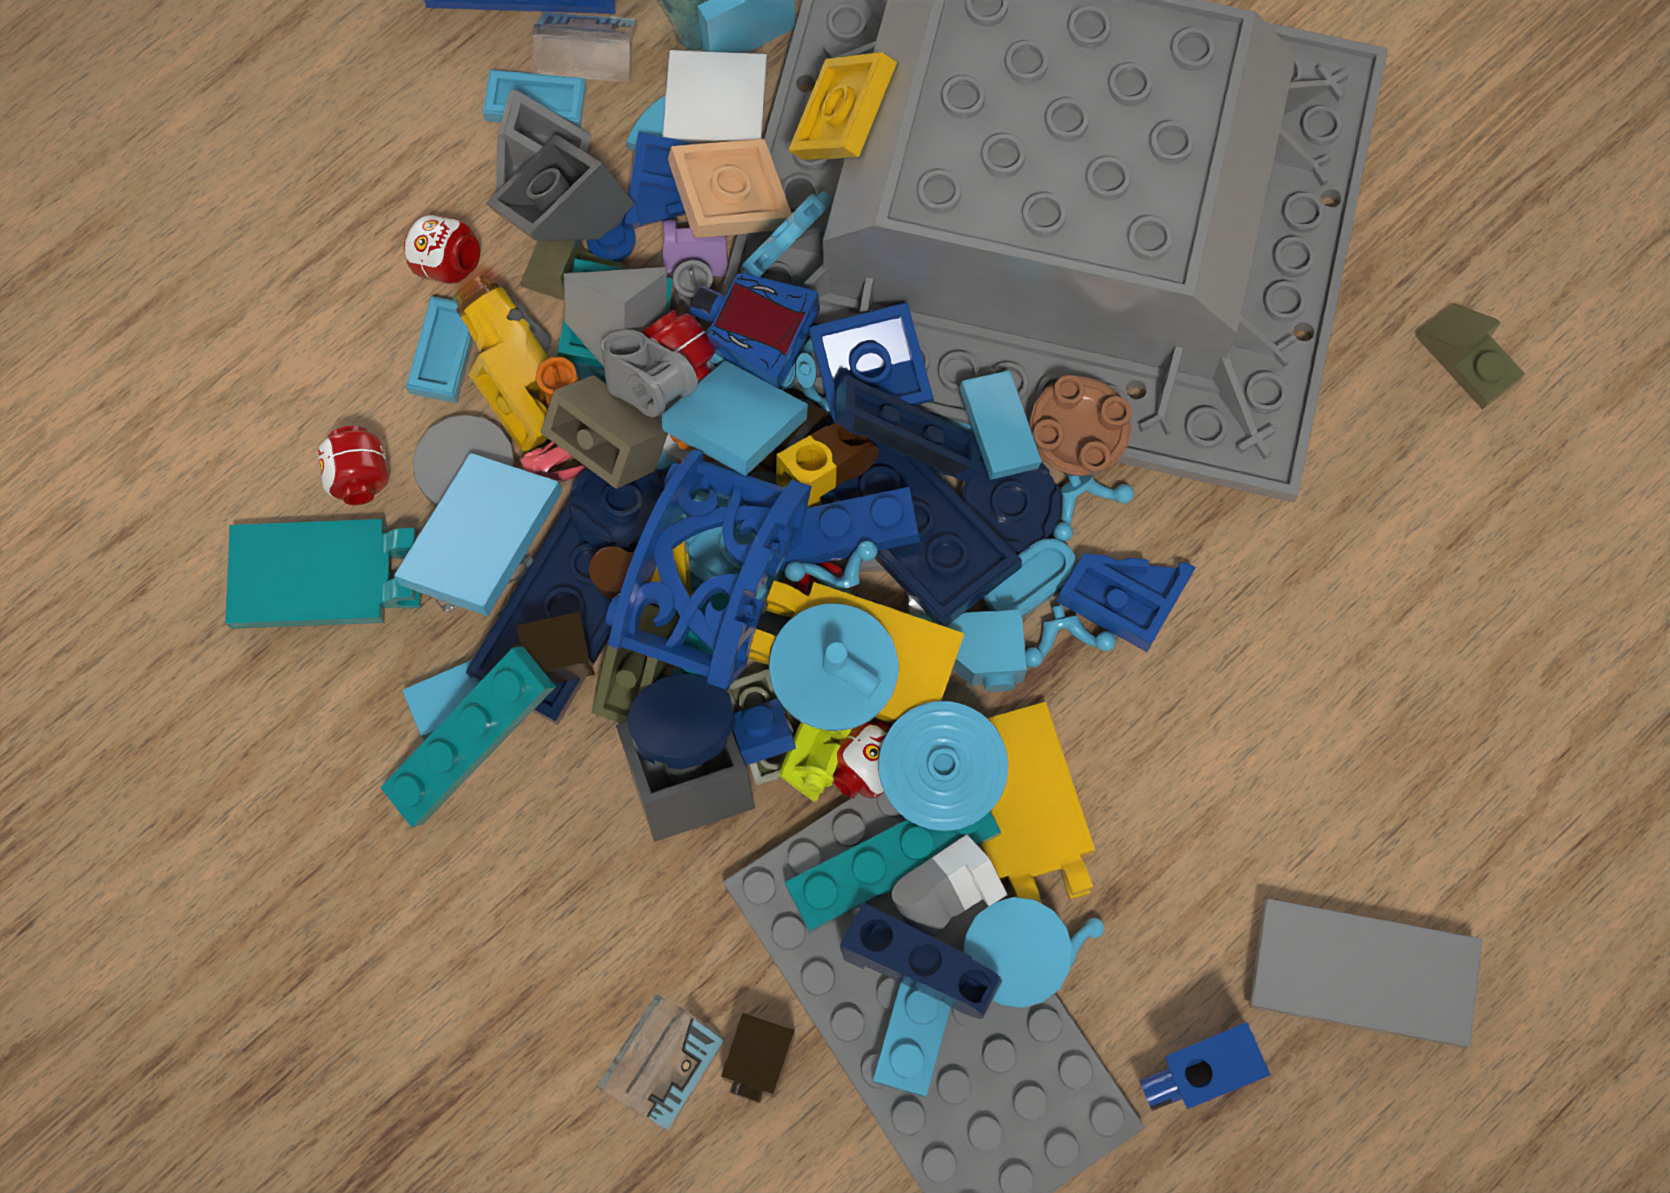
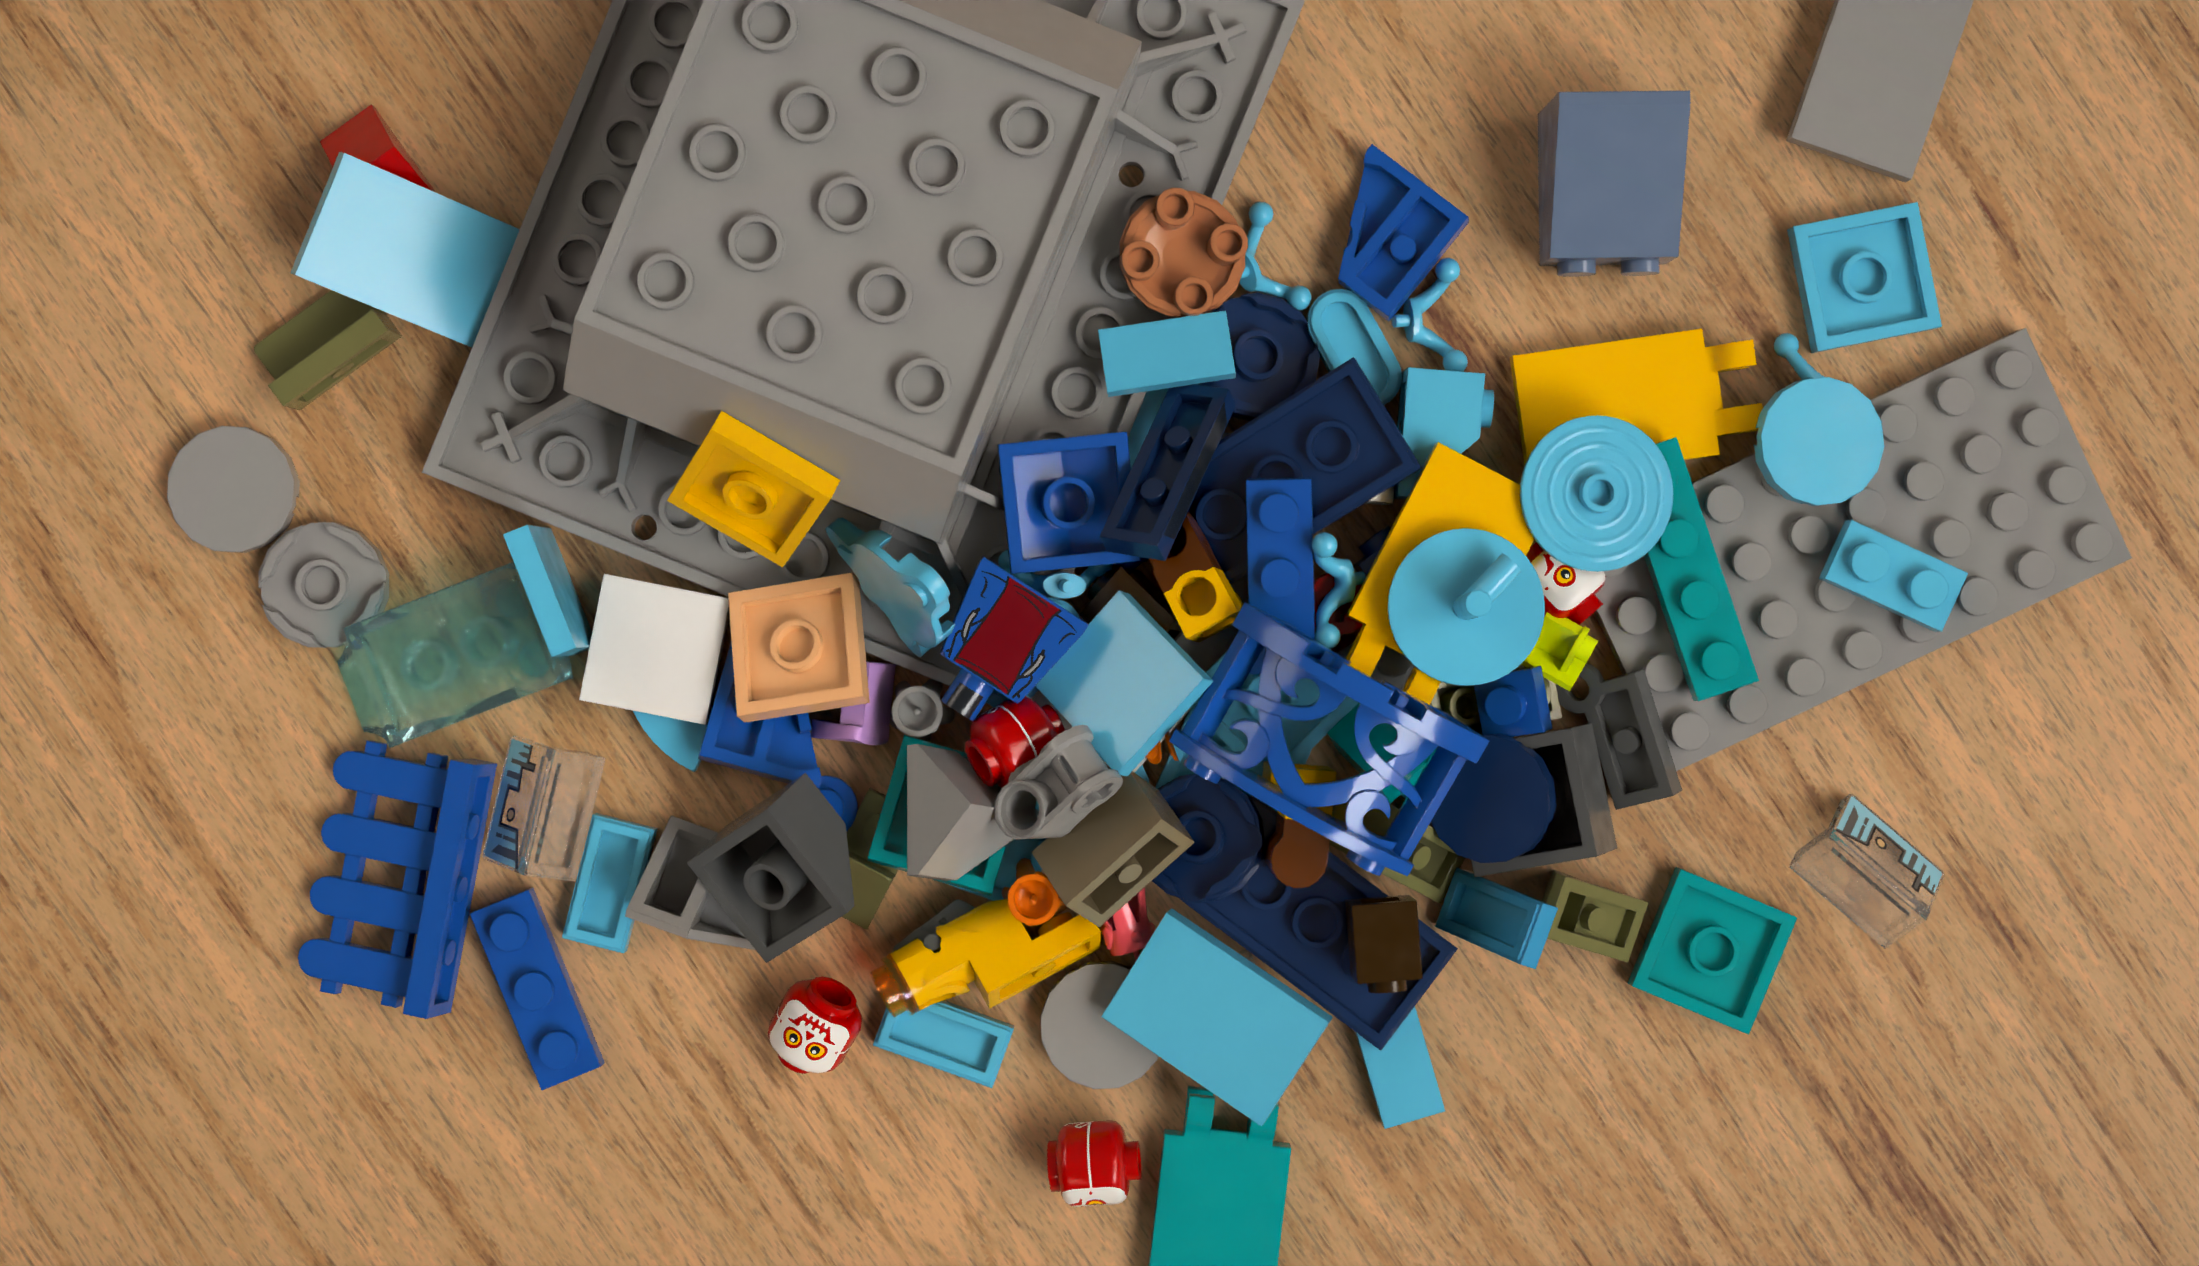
camera: 85 degrees left, 15 degrees up
(449, 60) = (537, 988): none -> blue plate
(467, 736) = (1471, 1054): teal plate -> none
(578, 940) = (1712, 950): none -> teal tile
(583, 744) = (1496, 918): none -> dark azure tile
(594, 822) = (1593, 916): none -> olive slope
(749, 835) = (1626, 736): none -> dark grey hinge
(757, 1058) = (1884, 758): dark brown brick -> none
(919, 961) = (1826, 557): dark blue leg -> none
(947, 886) = (1738, 513): leg -> none
(1162, 985) = (1864, 277): none -> medium azure tile
(1203, 750) = (1611, 180): none -> sand blue slope
(1233, 1061) = (1981, 240): blue torso -> none

